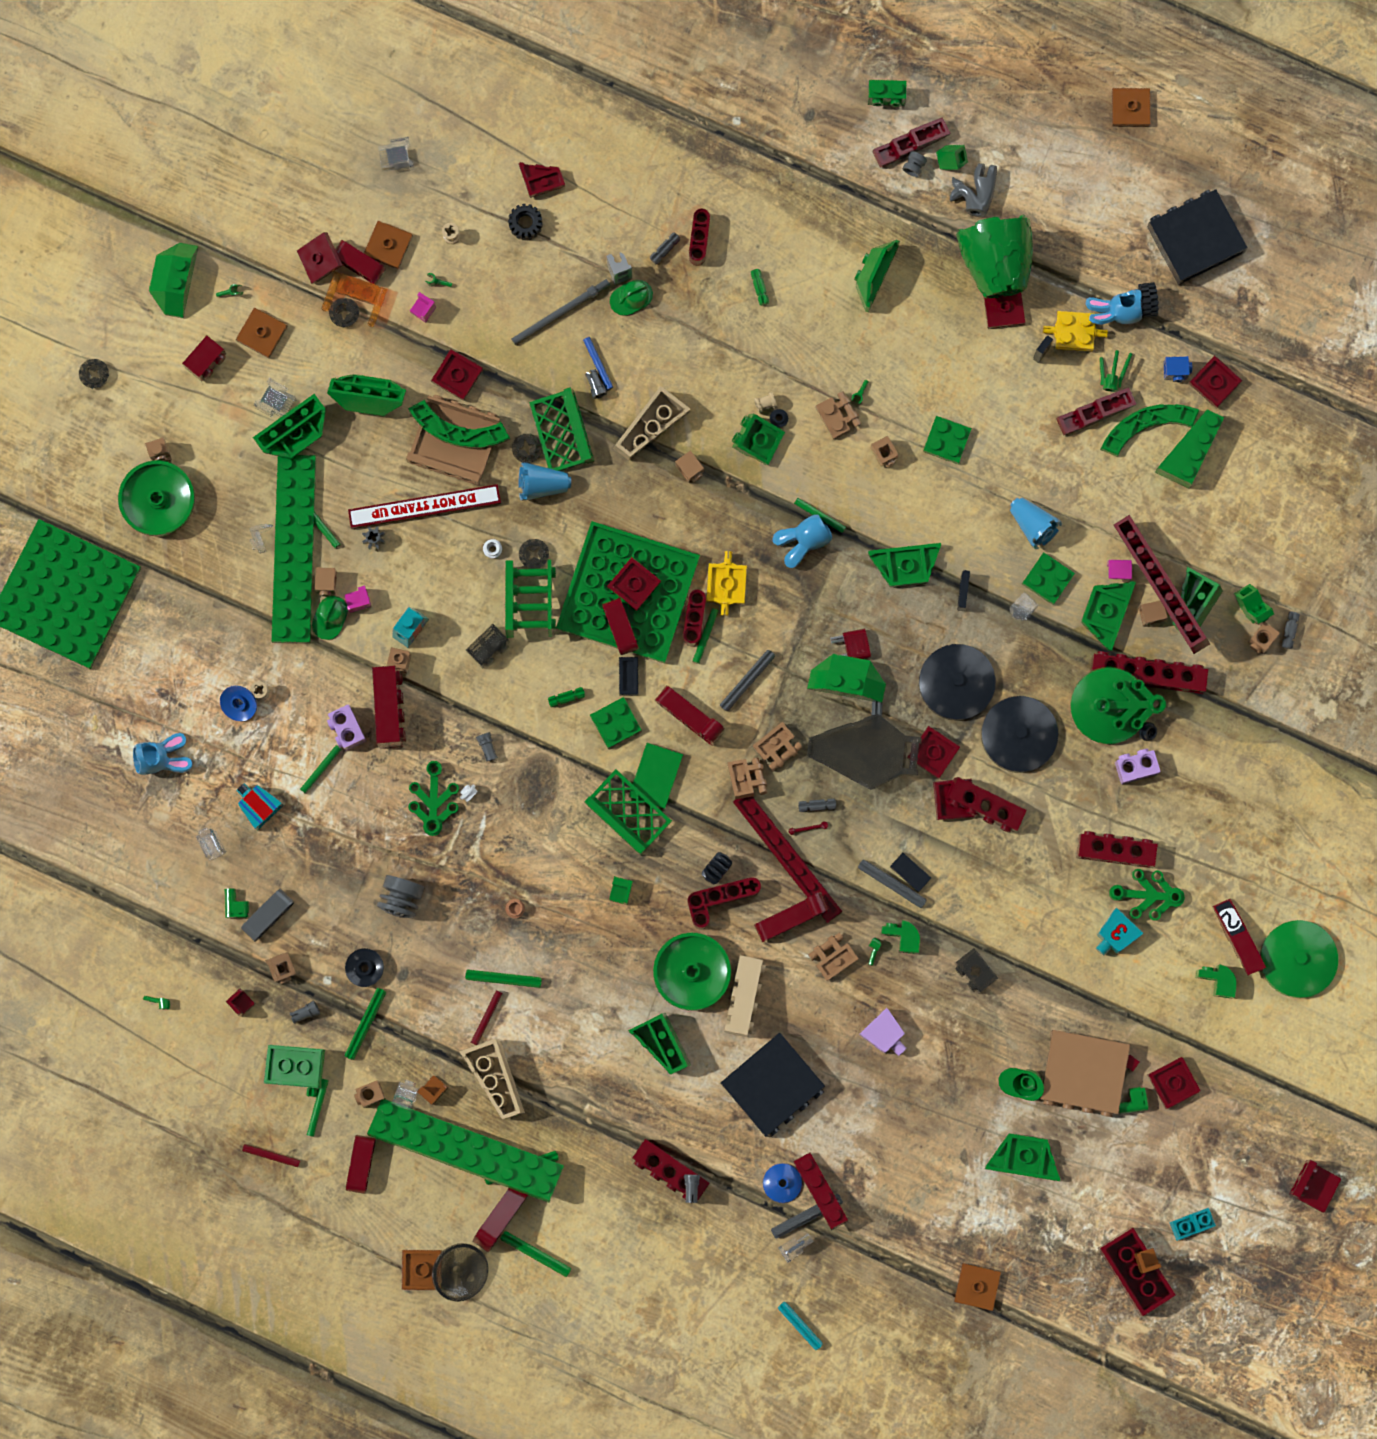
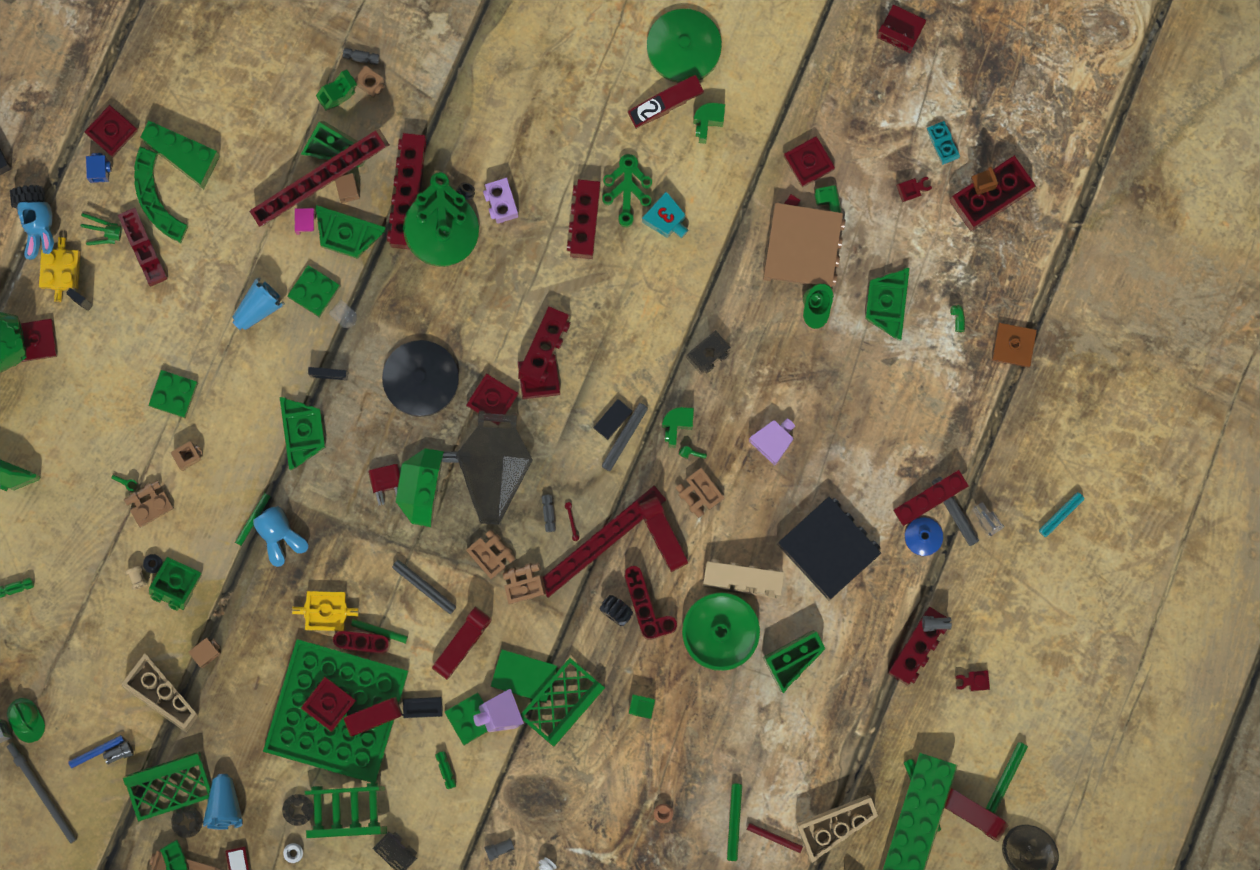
camera: 95 degrees left, 0 degrees up
(619, 749) = (499, 713): none -> lavender torso
(634, 1229) = (976, 681): none -> dark red plate
(1007, 1231) = (959, 317): none -> green arm
(1019, 734) = (471, 316): black dish -> none
(1143, 1187) = (911, 189): none -> dark red plate

